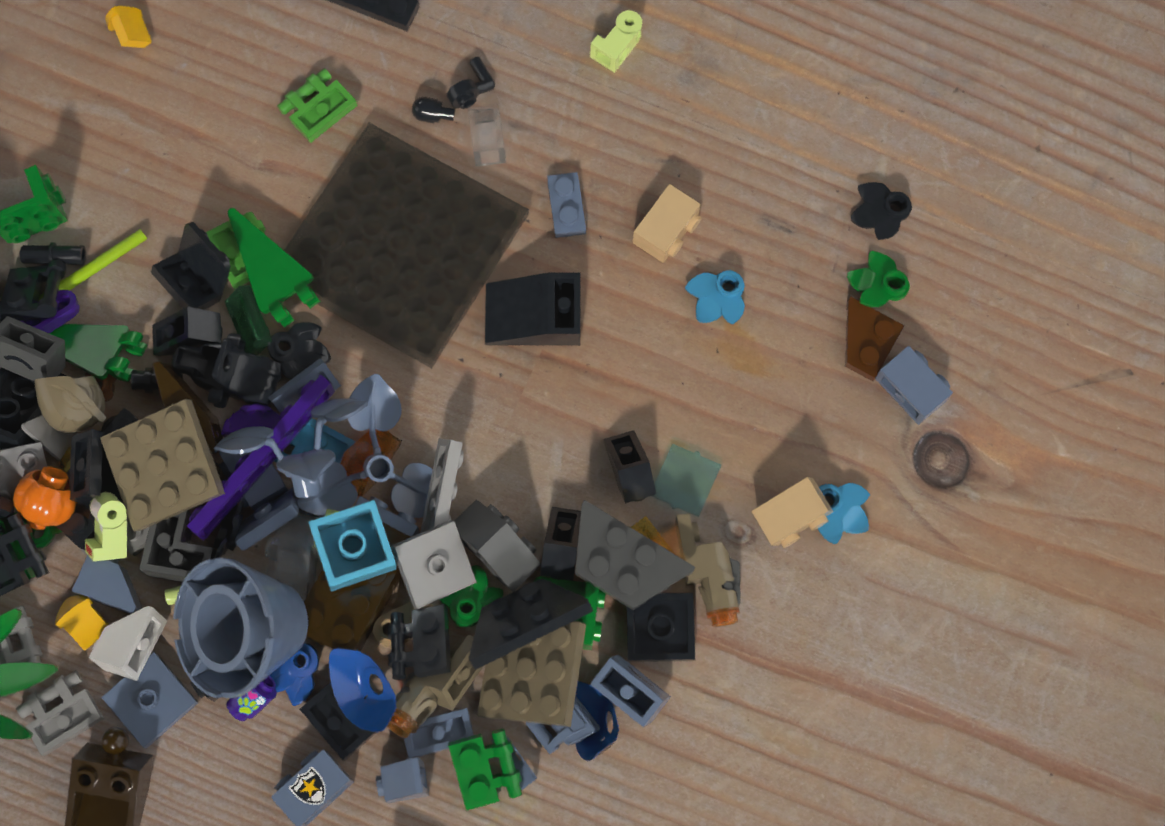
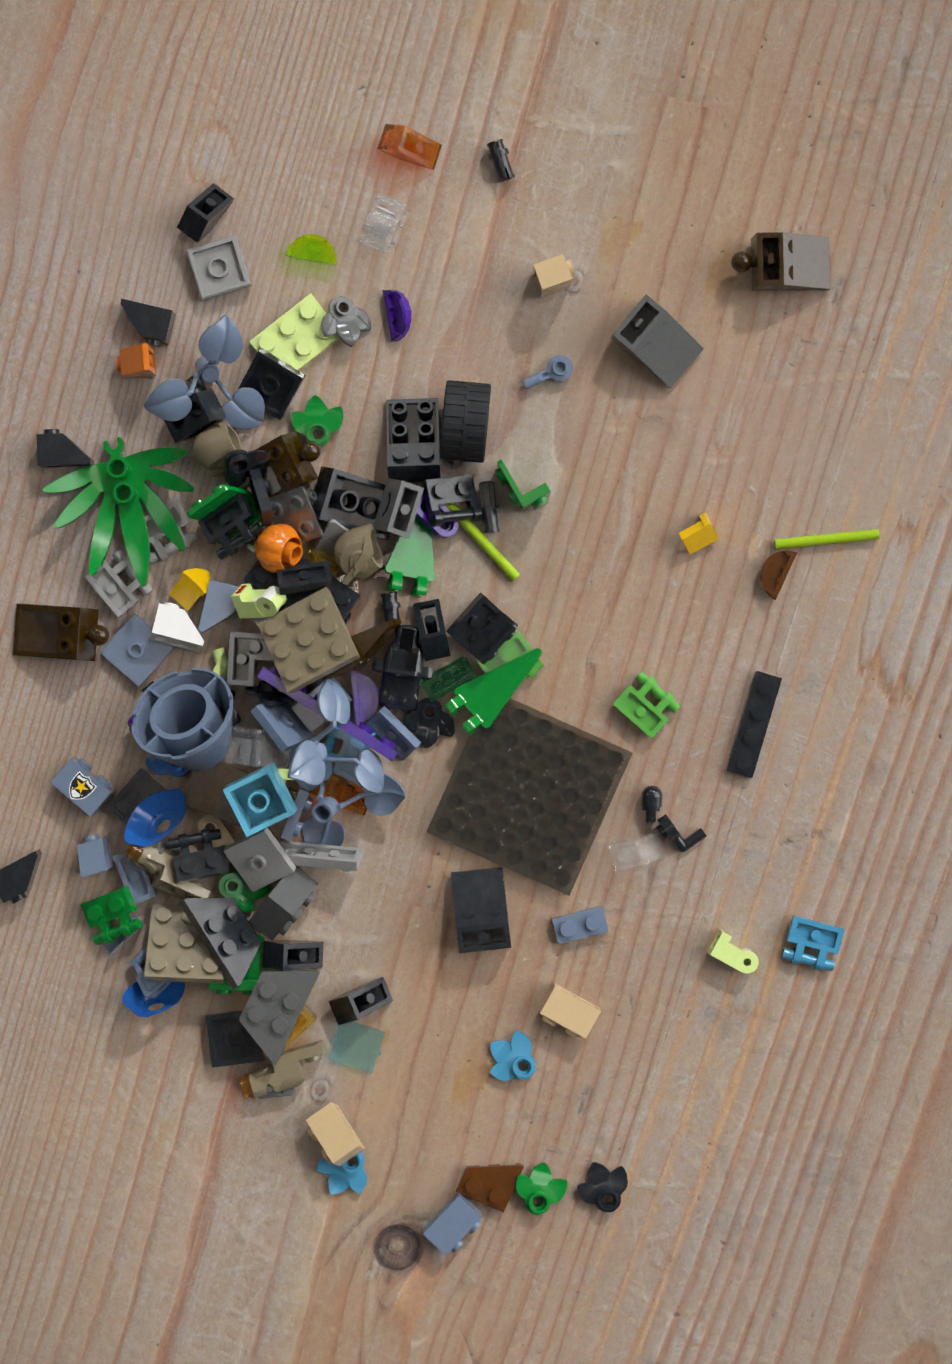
camera: 85 degrees right, 15 degrees up
(630, 690) = (181, 1021): sand blue brick -> none

